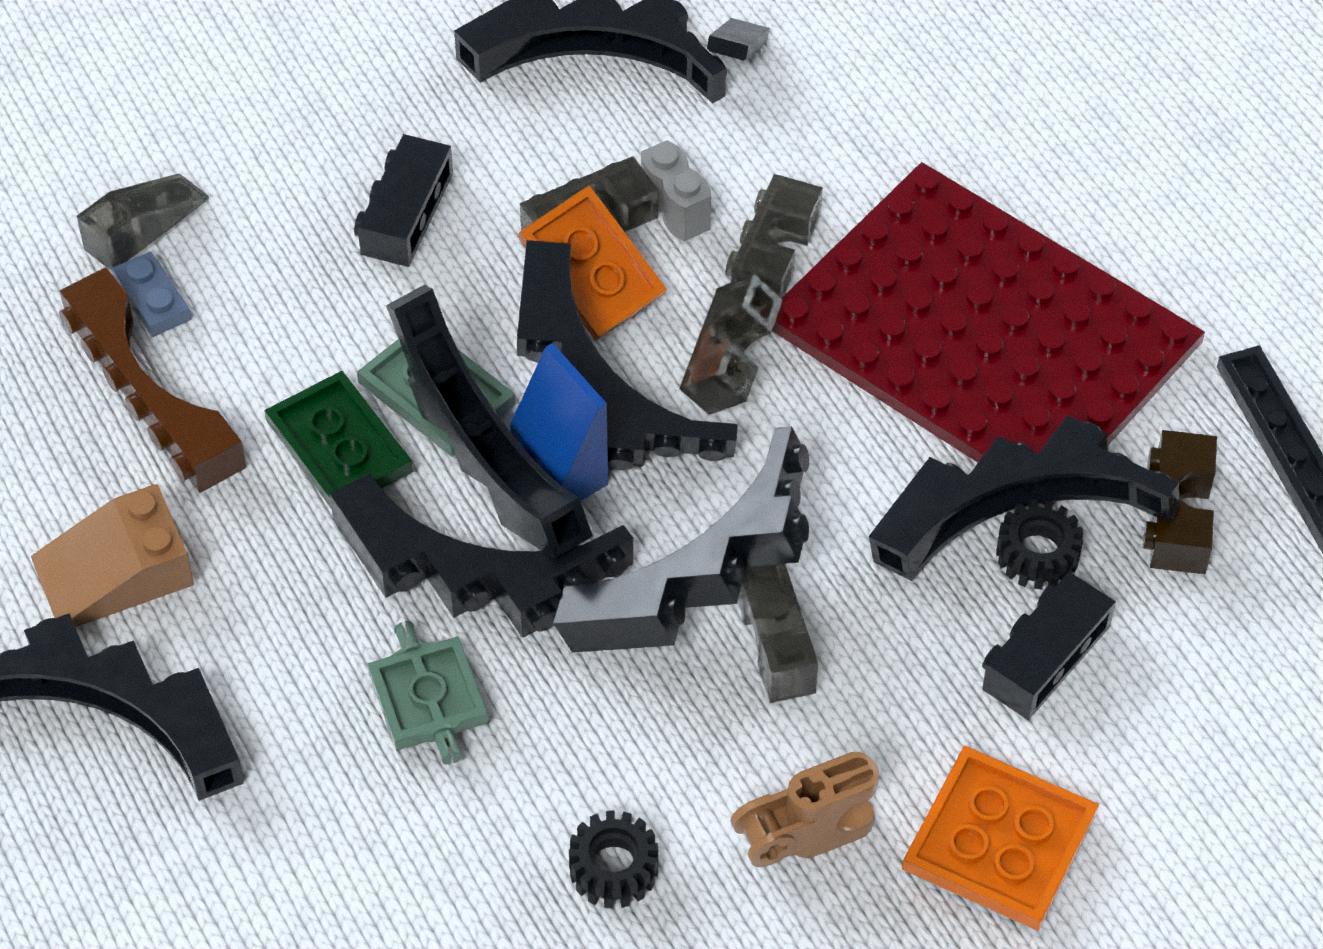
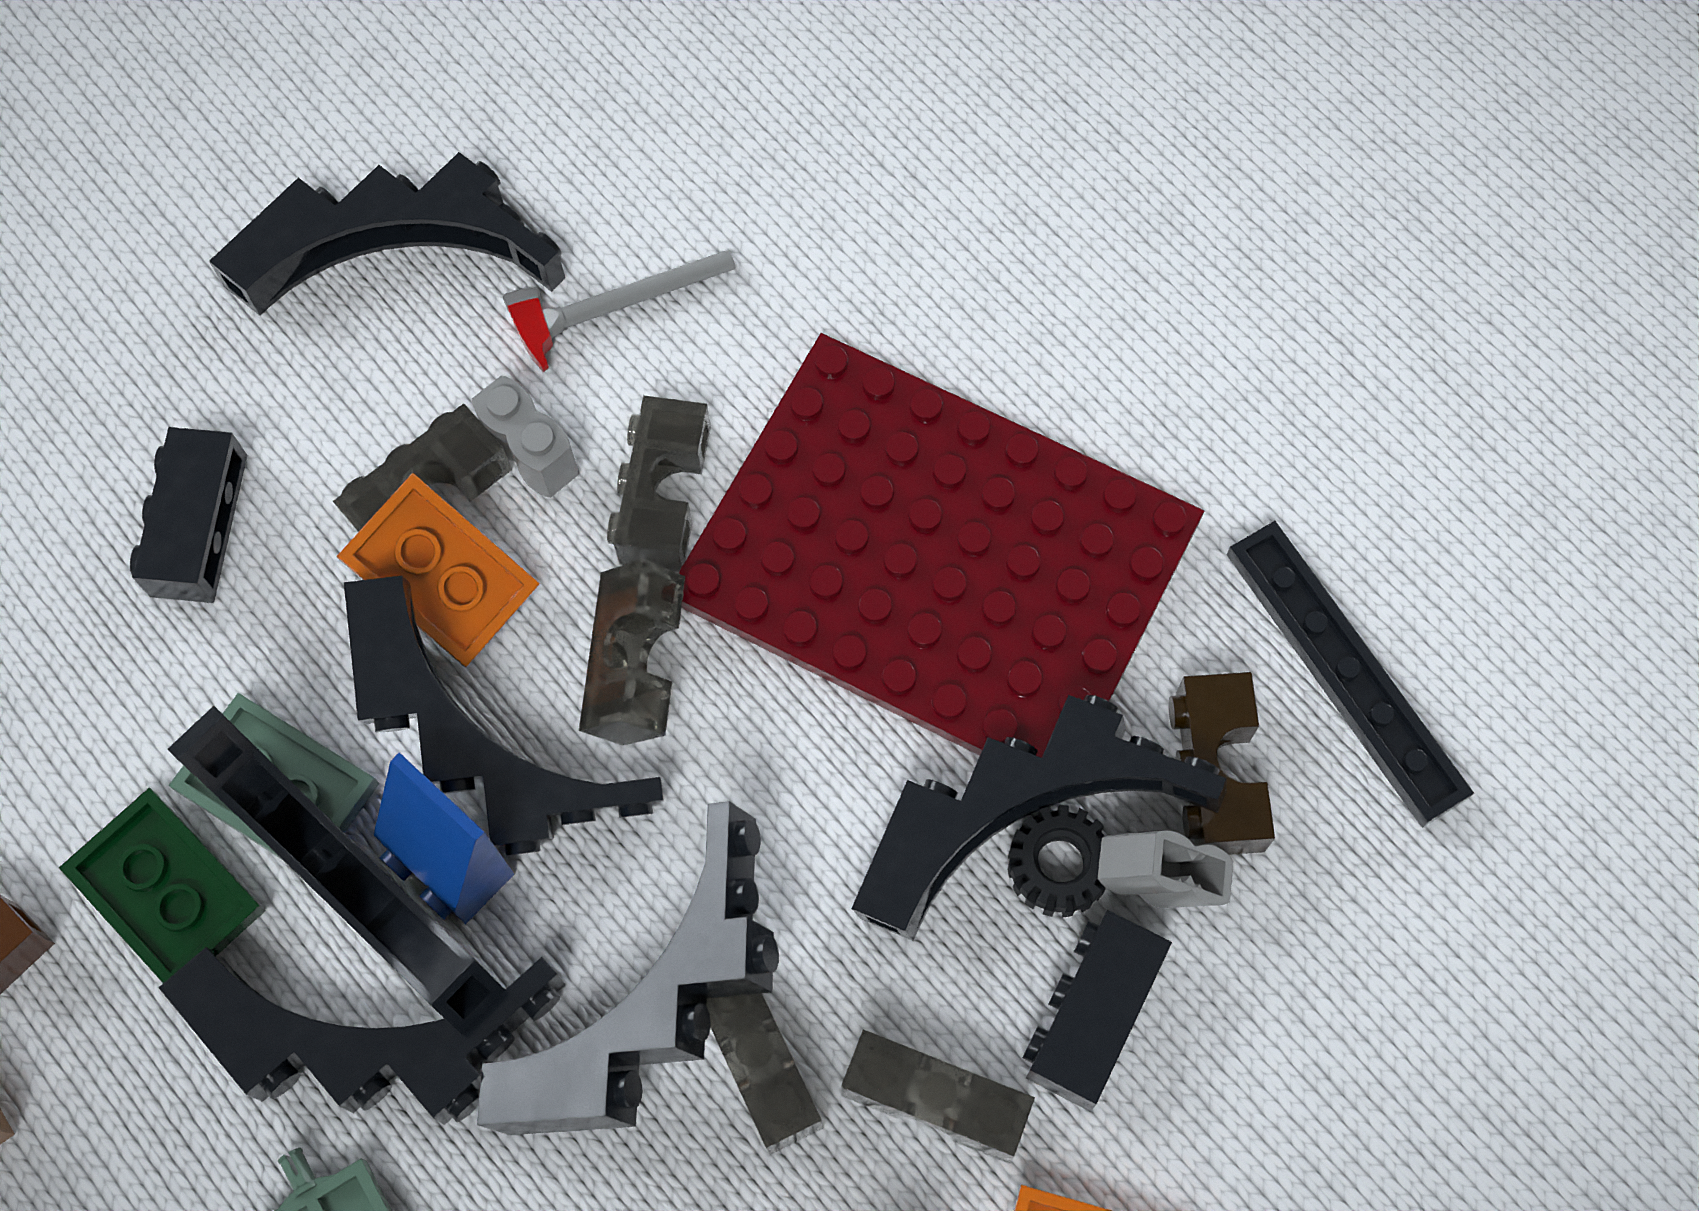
camera: 10 degrees left, 15 degrees up
(698, 123) = (539, 325): none -> light grey piece
(737, 39) = (566, 202): tile -> none
(941, 689) = (937, 1094): none -> clear smoke arch
(1120, 551) = (1165, 869): none -> light grey brick

